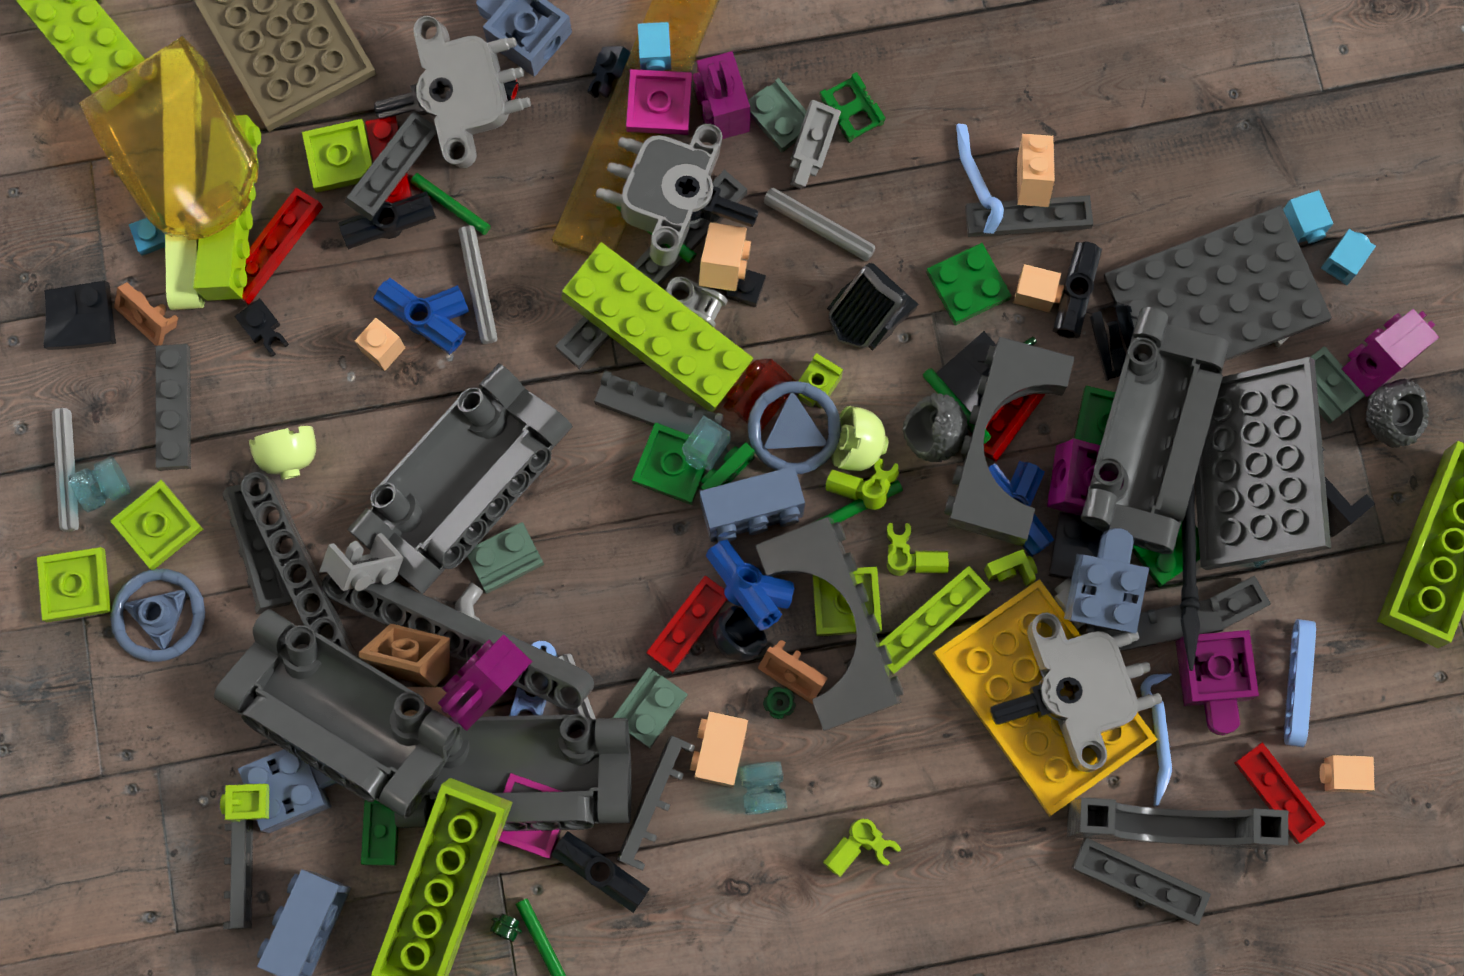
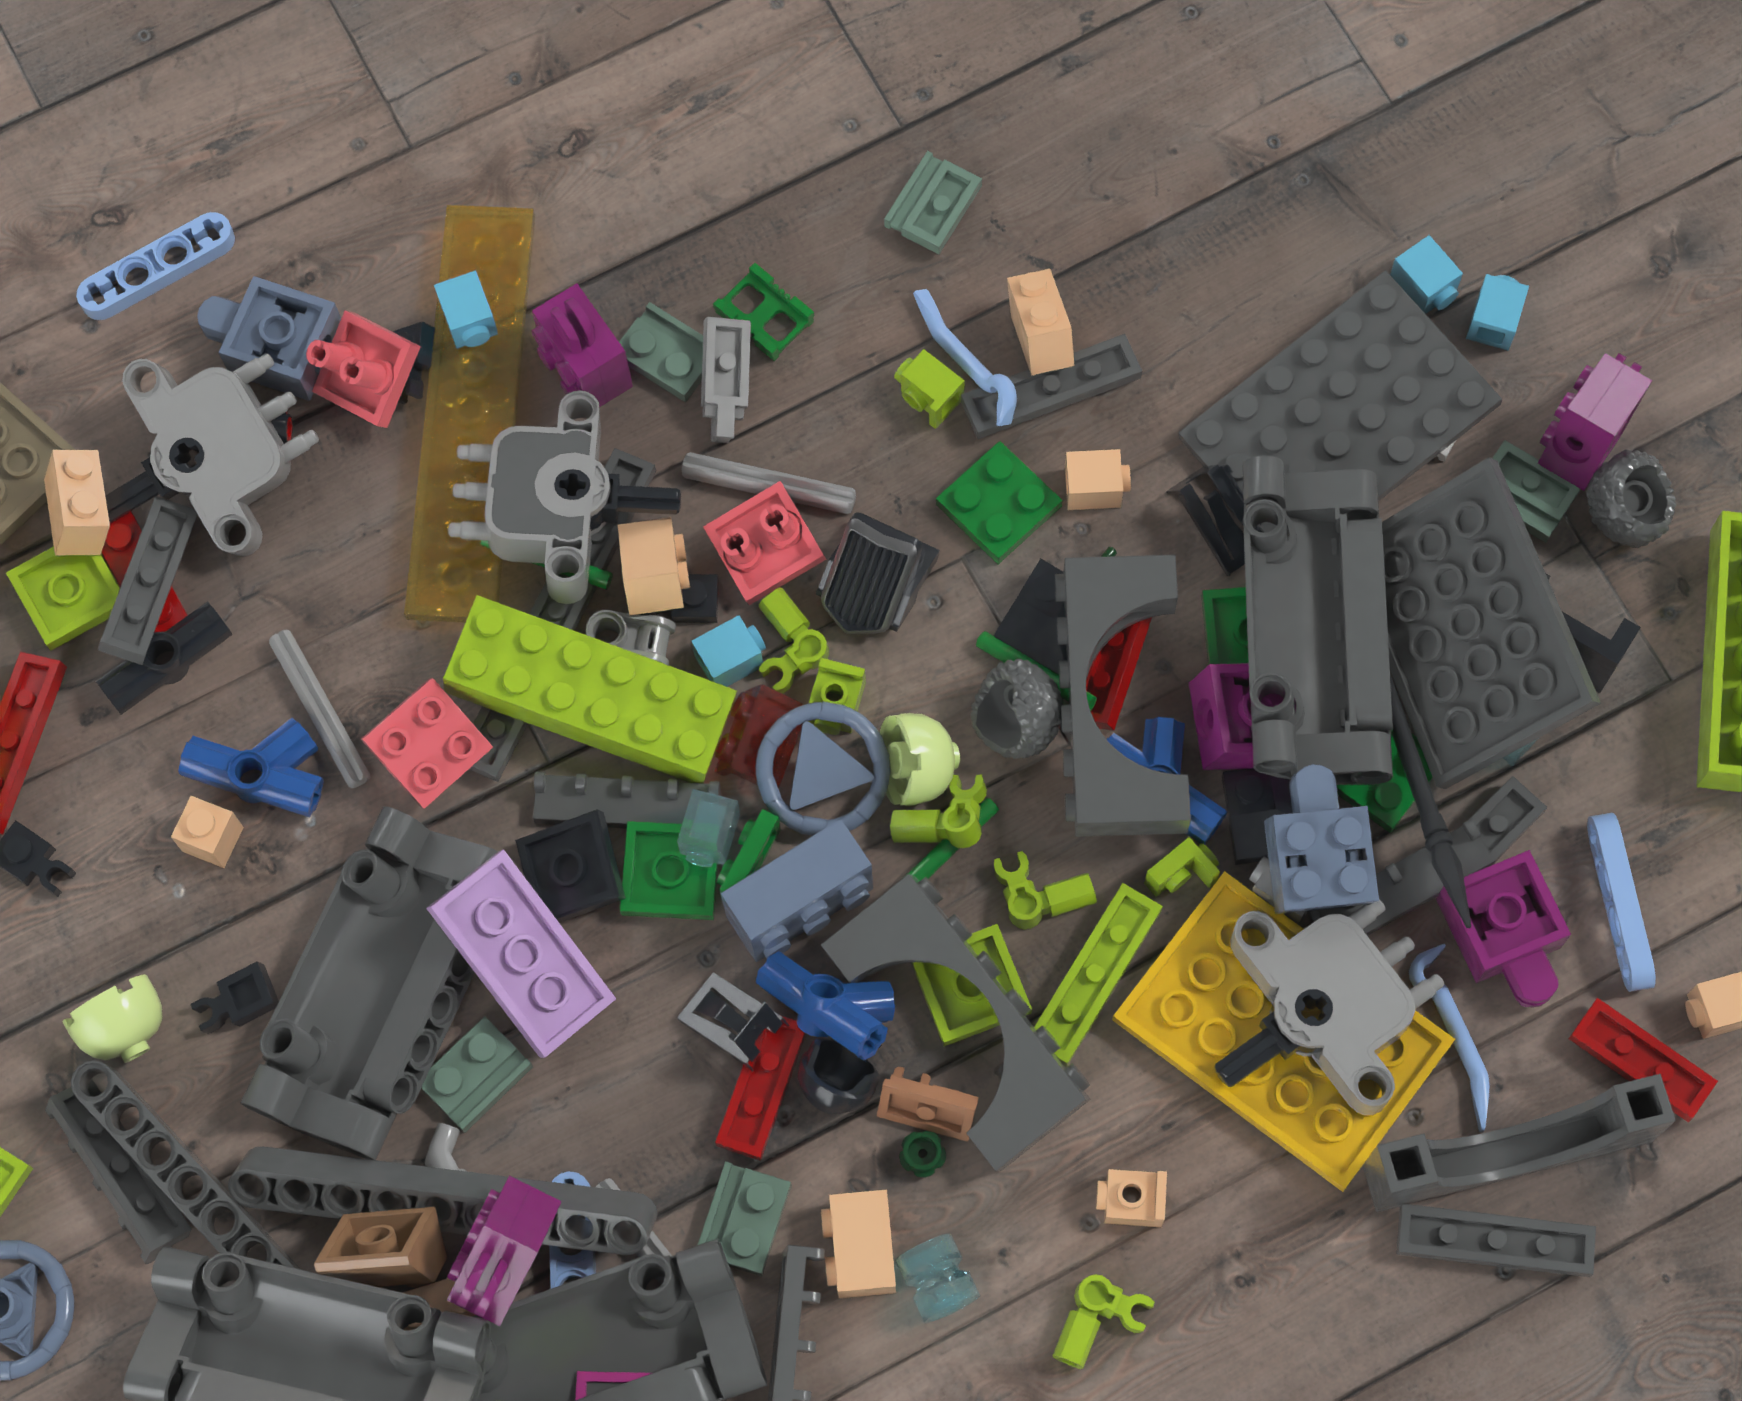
camera: 15 degrees left, 5 degrees down
(360, 99) = (76, 502): none -> light nougat brick
(360, 570) = (278, 1154): light grey window -> none
(370, 461) = (242, 998): none -> black plate
(450, 204) = (246, 609): green bar -> none
(539, 330) = (427, 743): none -> coral plate
(558, 488) = (521, 953): none -> lavender plate
(575, 65) = (363, 368): none -> coral plate
(608, 442) = (572, 866): none -> black plate
(659, 102) = (496, 382): dark pink plate -> none
(670, 559) = (708, 1003): none -> black piece
(757, 330) = (729, 651): none -> medium azure brick
(803, 264) = (764, 543): none -> coral plate
(804, 325) = (793, 626): none -> lime bar
(922, 778) = (1147, 1211): none -> light nougat brick
(947, 191) = (930, 386): none -> lime brick
(989, 67) = (933, 202): none -> sand green plate
(1073, 306) = (1149, 488): black piece -> none

